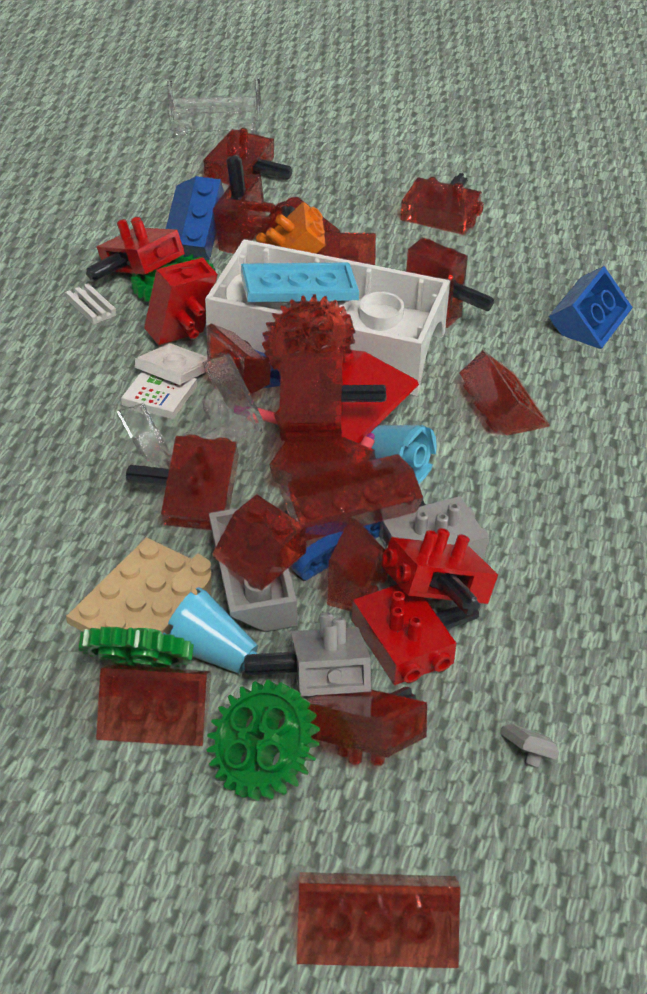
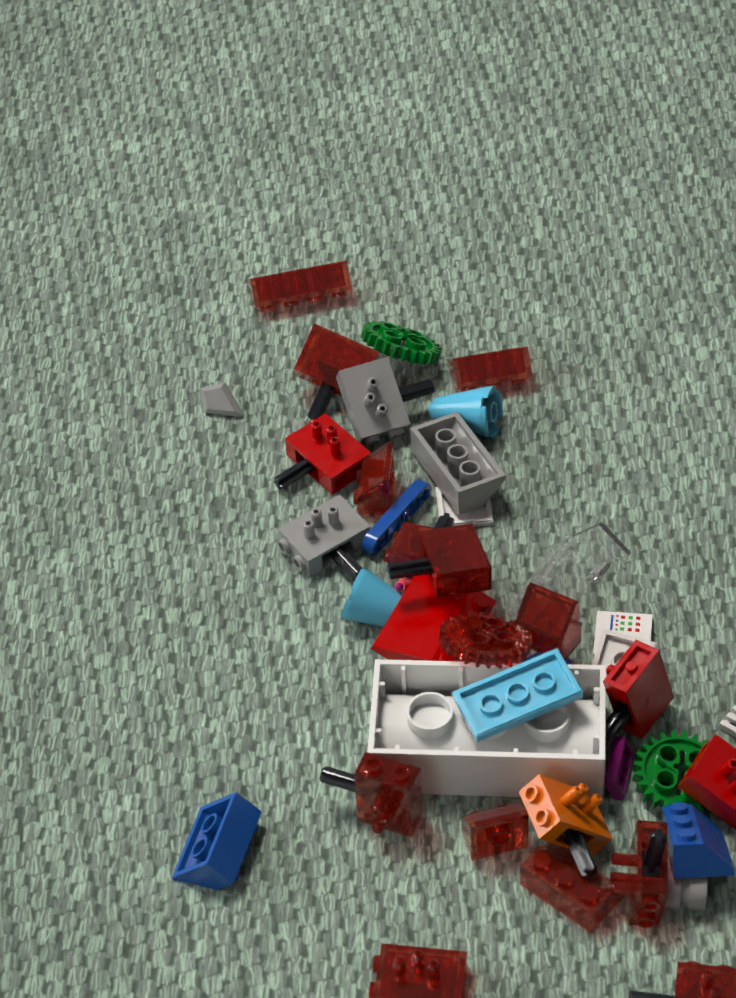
camera: 170 degrees right, 5 degrees up
(136, 647) = (533, 368): green gear -> none
(143, 590) = (535, 442): tan plate -> none
(196, 482) = (533, 520): clear red piece -> none
(260, 542) = (448, 449): clear red slope -> none
(361, 491) = (394, 507): clear red slope -> none
(440, 569) = (308, 476): red piece -> none
(501, 396) = (290, 699): clear red slope -> none

